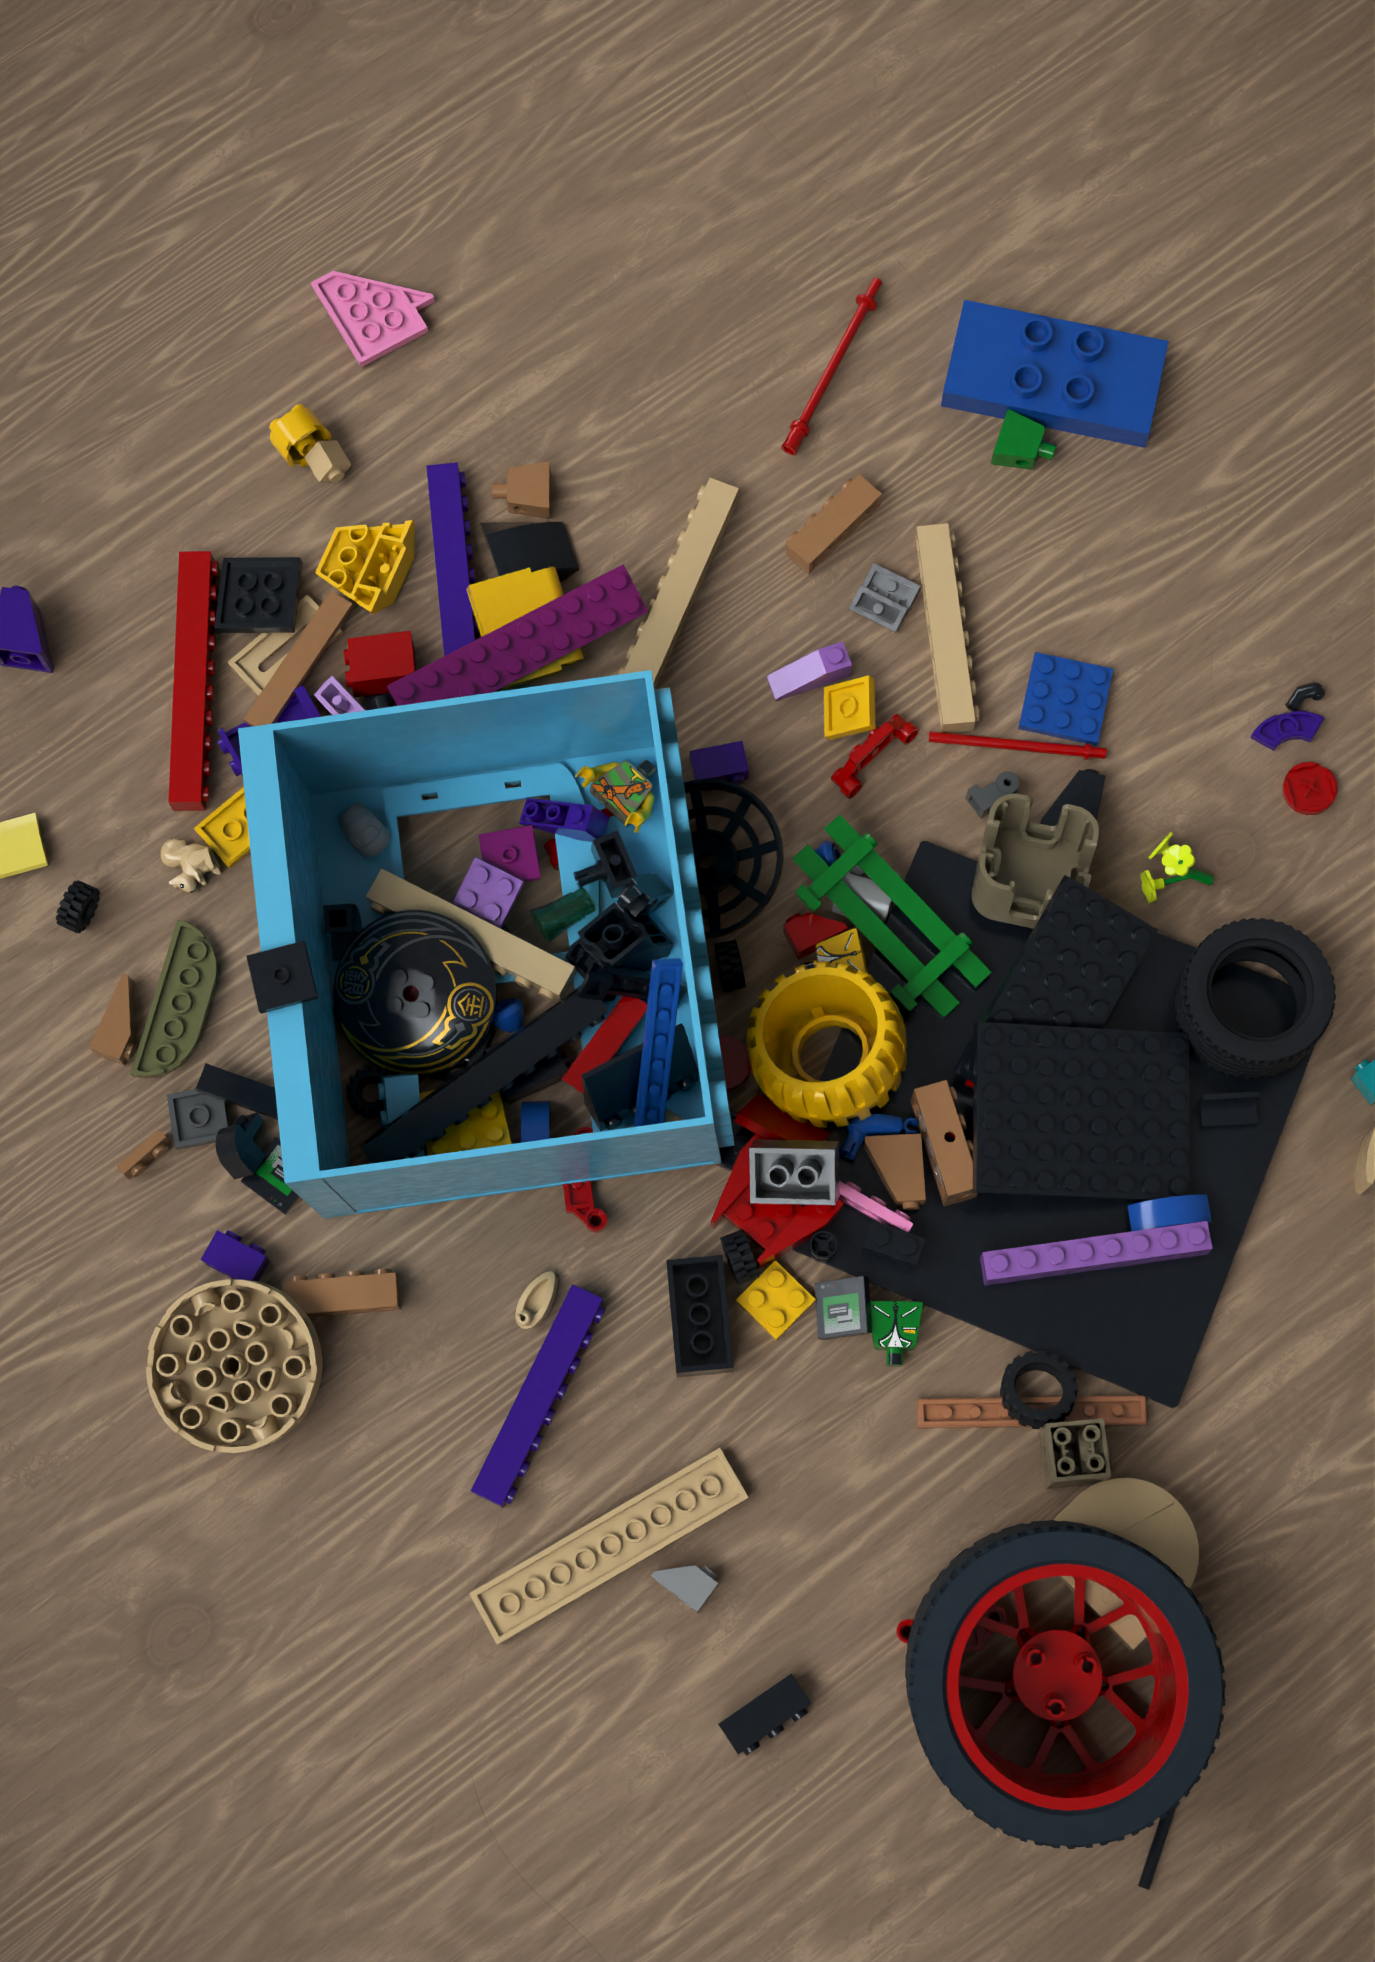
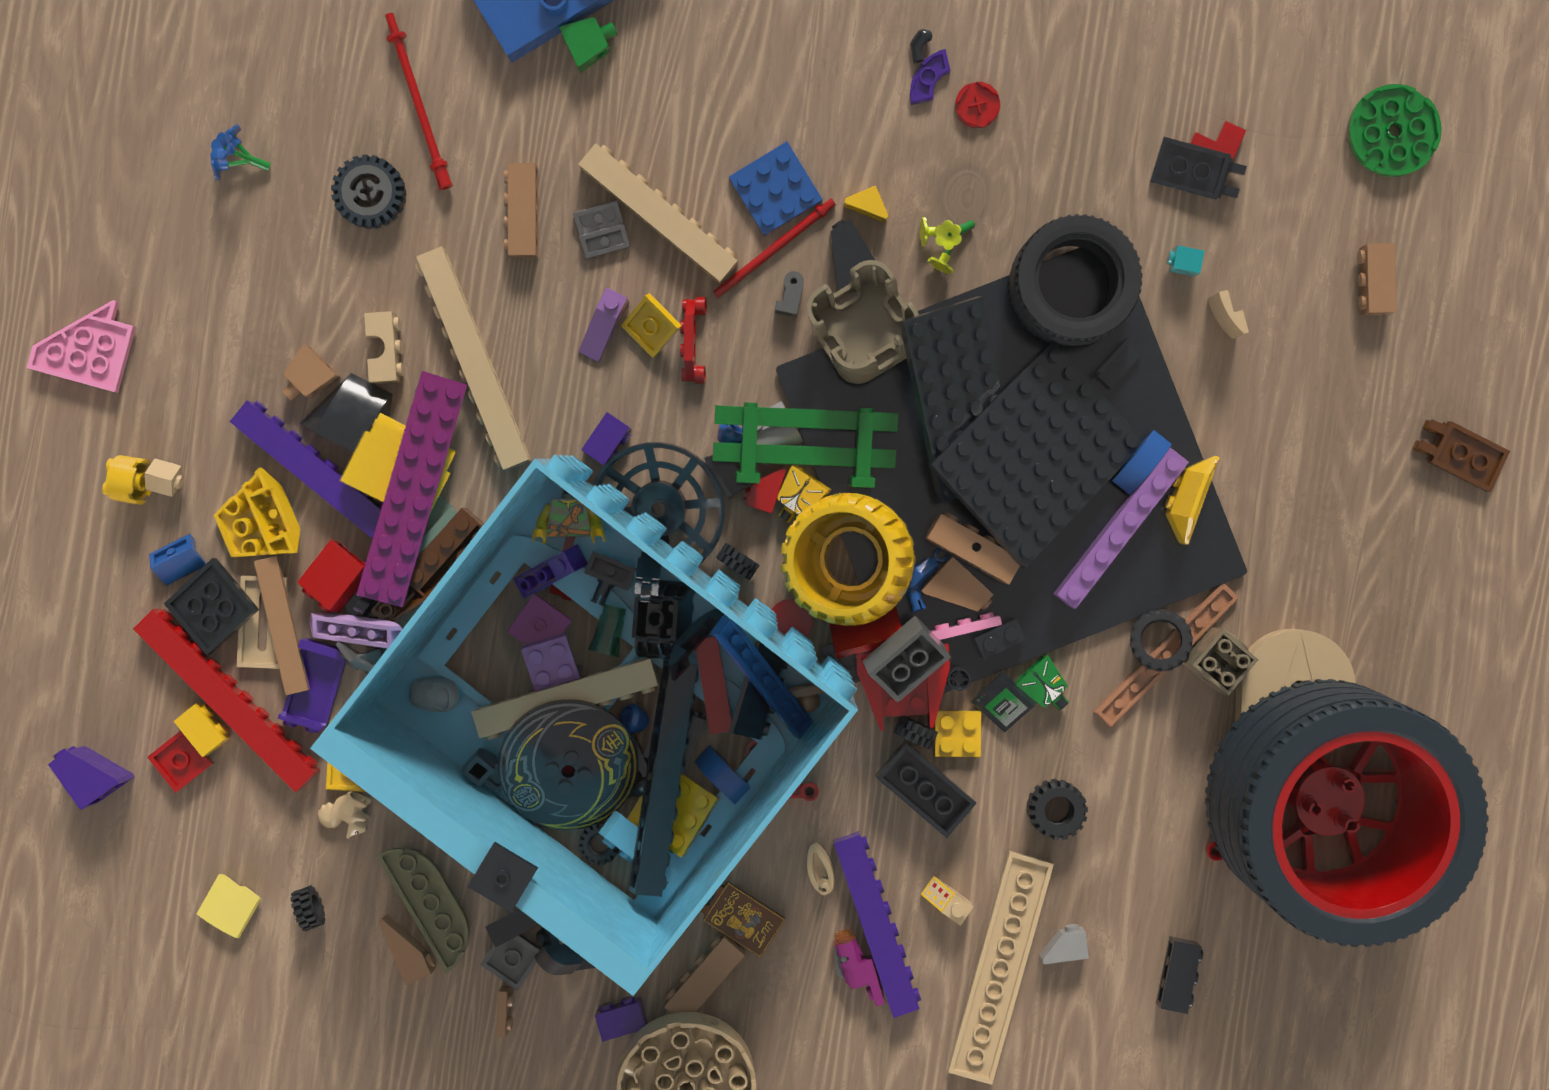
camera: 50 degrees left, 15 degrees up
(103, 692) = (179, 761): none -> red plate
(148, 684) = (202, 728): none -> yellow brick
(268, 535) = (176, 560): none -> blue panel
(426, 1274) = (742, 918): none -> tile
(479, 1416) = (854, 968): none -> magenta plate
(597, 542) = (387, 366): none -> tan arch
(621, 1437) = (947, 900): none -> tan slope
(645, 255) = (224, 145): none -> blue plant
(709, 383) = (347, 198): none -> wheel
(791, 879) = (725, 475): none -> black panel
(807, 1425) = (1066, 826): none -> black tyre
(1133, 779) = (868, 203): none -> yellow slope
(1184, 1284) = (1188, 497): none -> yellow wedge

